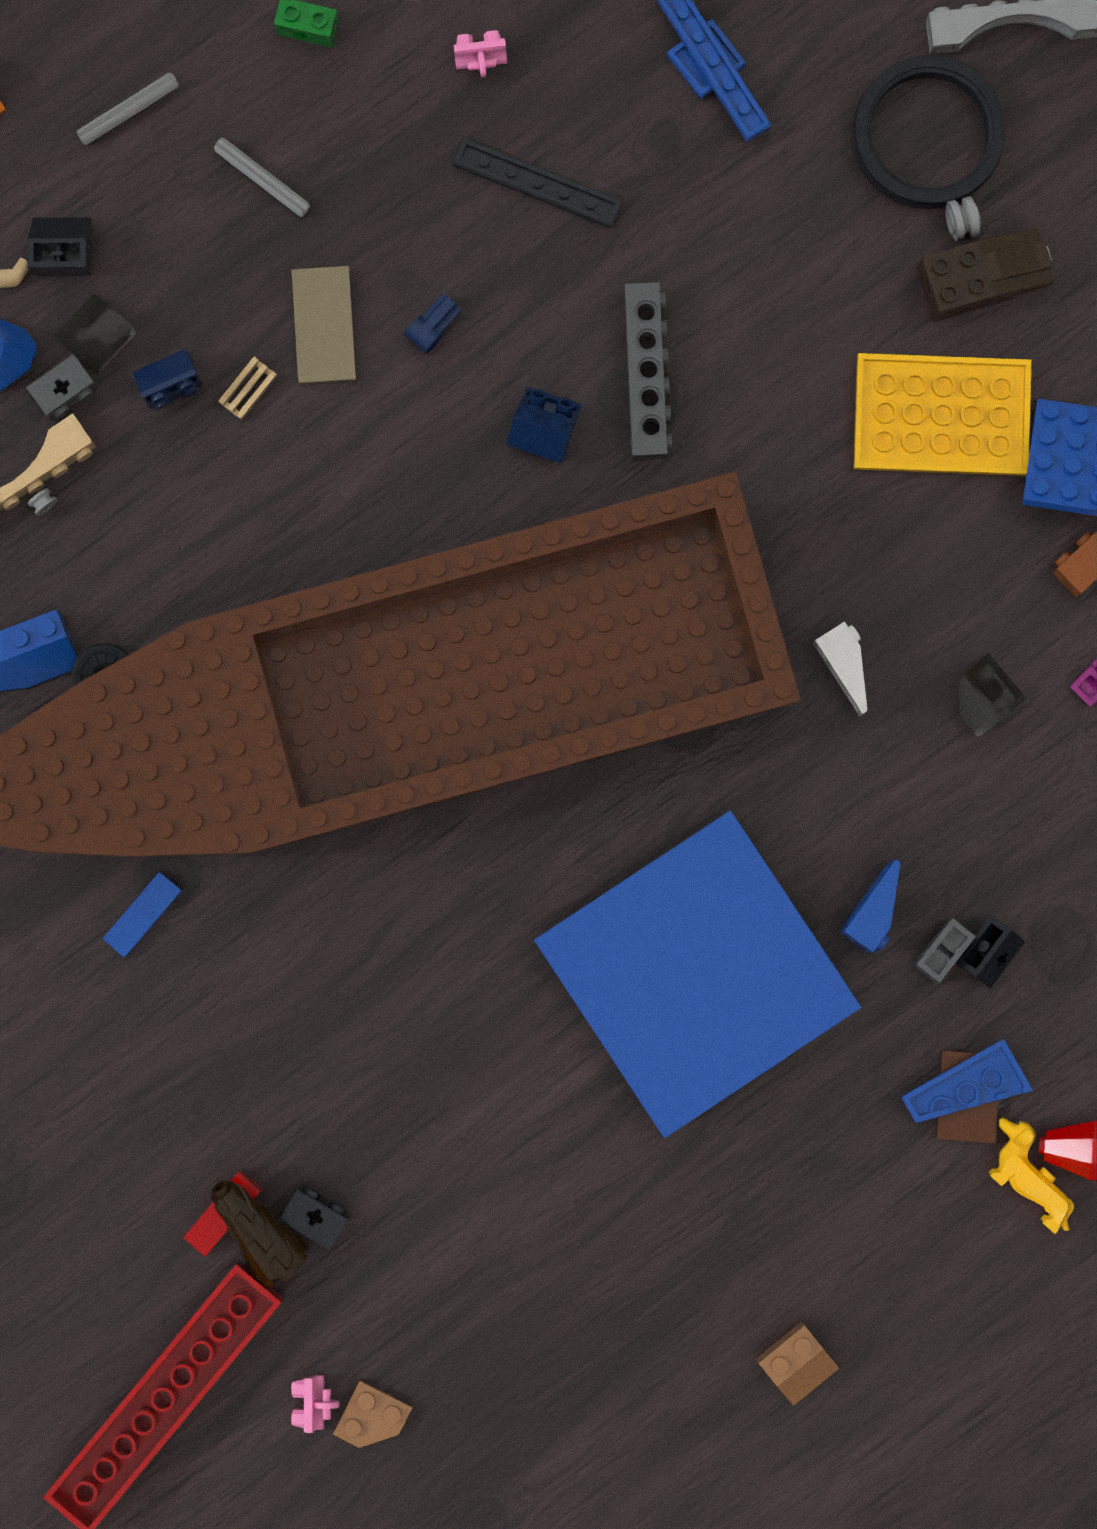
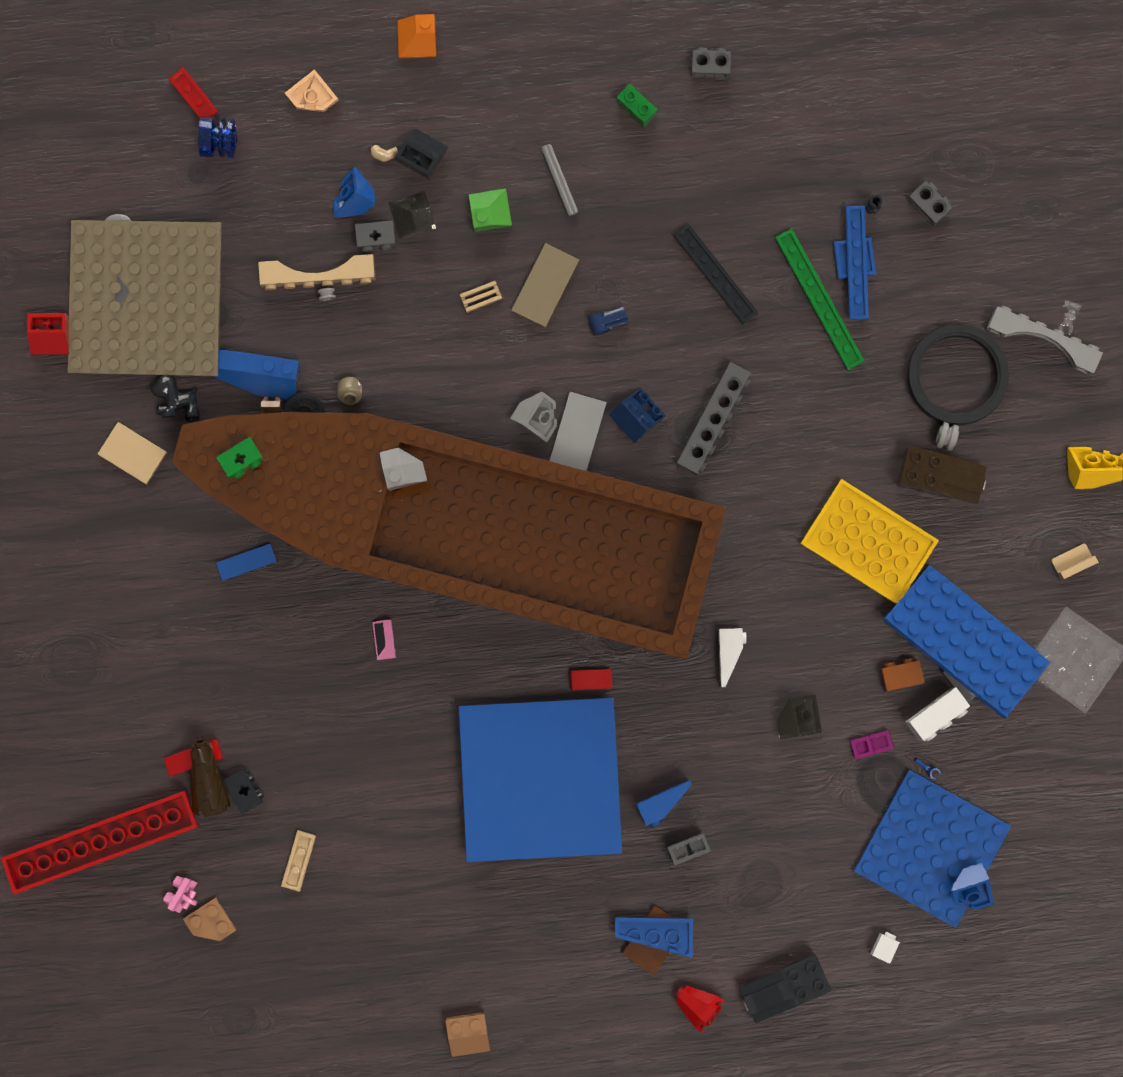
camera: 30 degrees right, 0 degrees up
(38, 786) = (229, 459): none -> green brick
(54, 689) = (270, 406): none -> medium nougat tile
(127, 108) = (506, 96): light grey axle -> none
(147, 610) = (349, 390): none -> dark tan head
(168, 380) = (438, 265): dark blue slope -> none
(194, 269) = (490, 210): none -> bright green slope
(277, 668) = (401, 469): none -> light grey slope
(383, 910) = (384, 639): none -> bright pink slope
(412, 500) = (537, 415): none -> light grey slope
(441, 1267) = (298, 860): none -> tan tile
(477, 488) = (578, 431): none -> light grey tile
(480, 54) = (724, 181): bright pink hips -> none
(685, 804) = (591, 679): none -> red slope
(692, 138) = (819, 299): none -> green tile
(990, 952) = (714, 865): black brick -> none
(1027, 1179) = (660, 1006): yellow animal -> none

